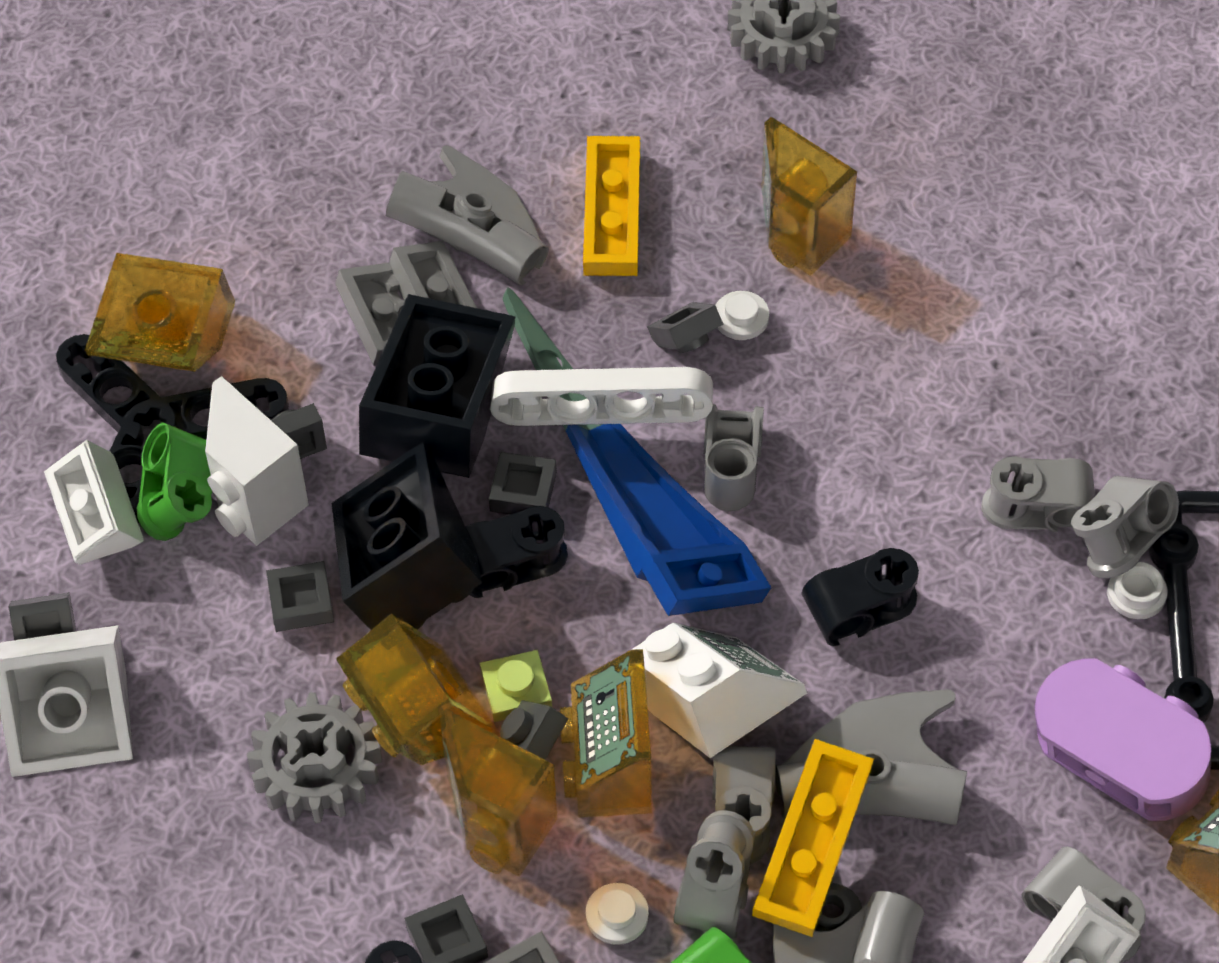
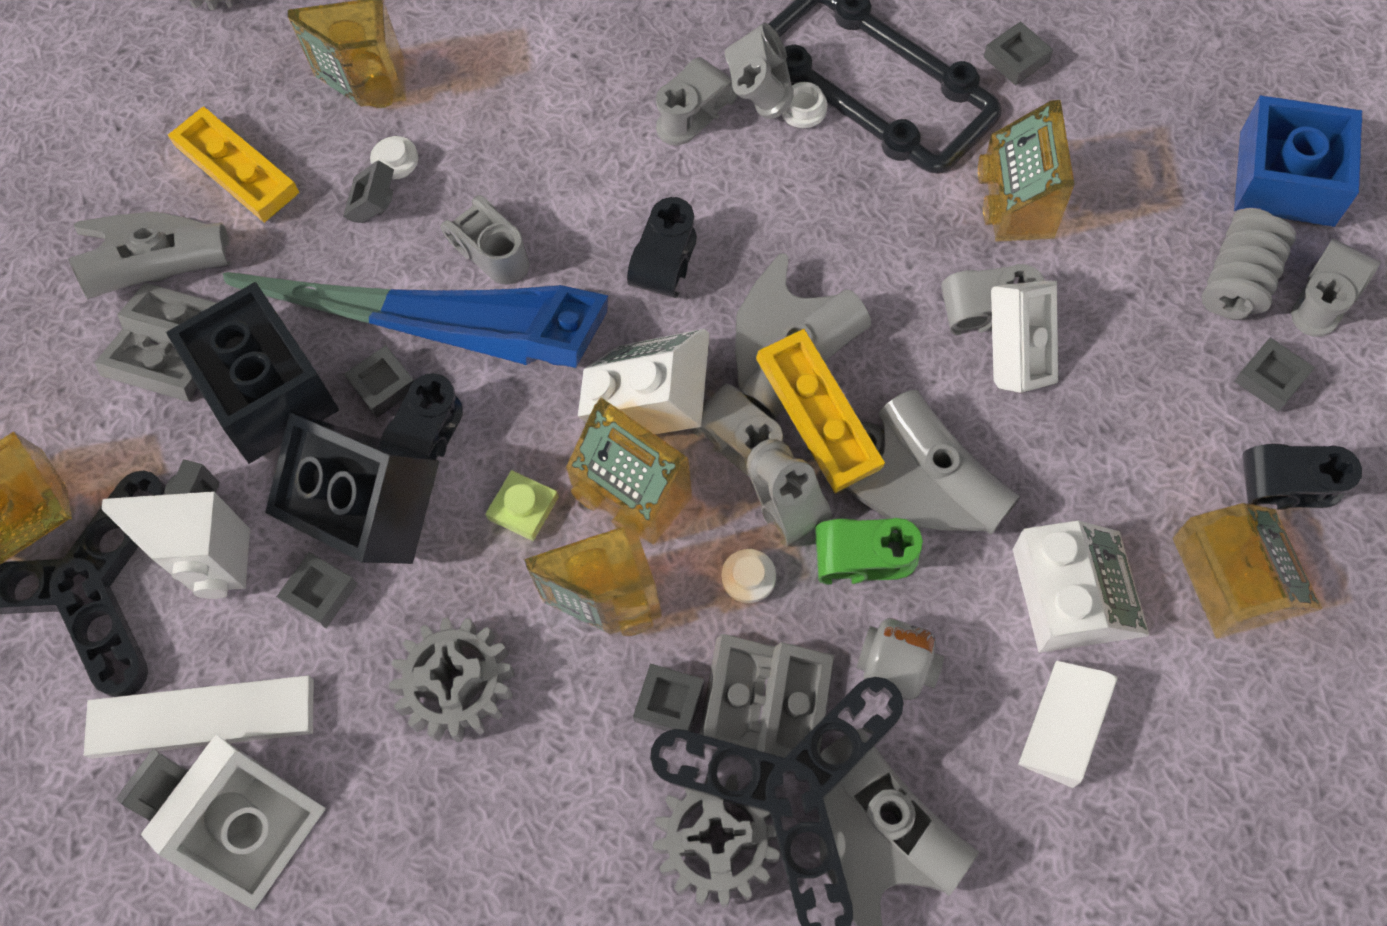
camera: 45 degrees left, 10 degrees up
(93, 503) = (97, 674): white slope -> none
(145, 620) = (198, 714): none -> white tile
(173, 482) = (141, 602): bright green piece -> none
(407, 688) = (470, 576): clear yellow slope -> none
(533, 727) = (572, 519): dark grey plate -> none
(601, 392) = (330, 316): white beam -> none
(1124, 738) = (903, 187): lavender brick -> none

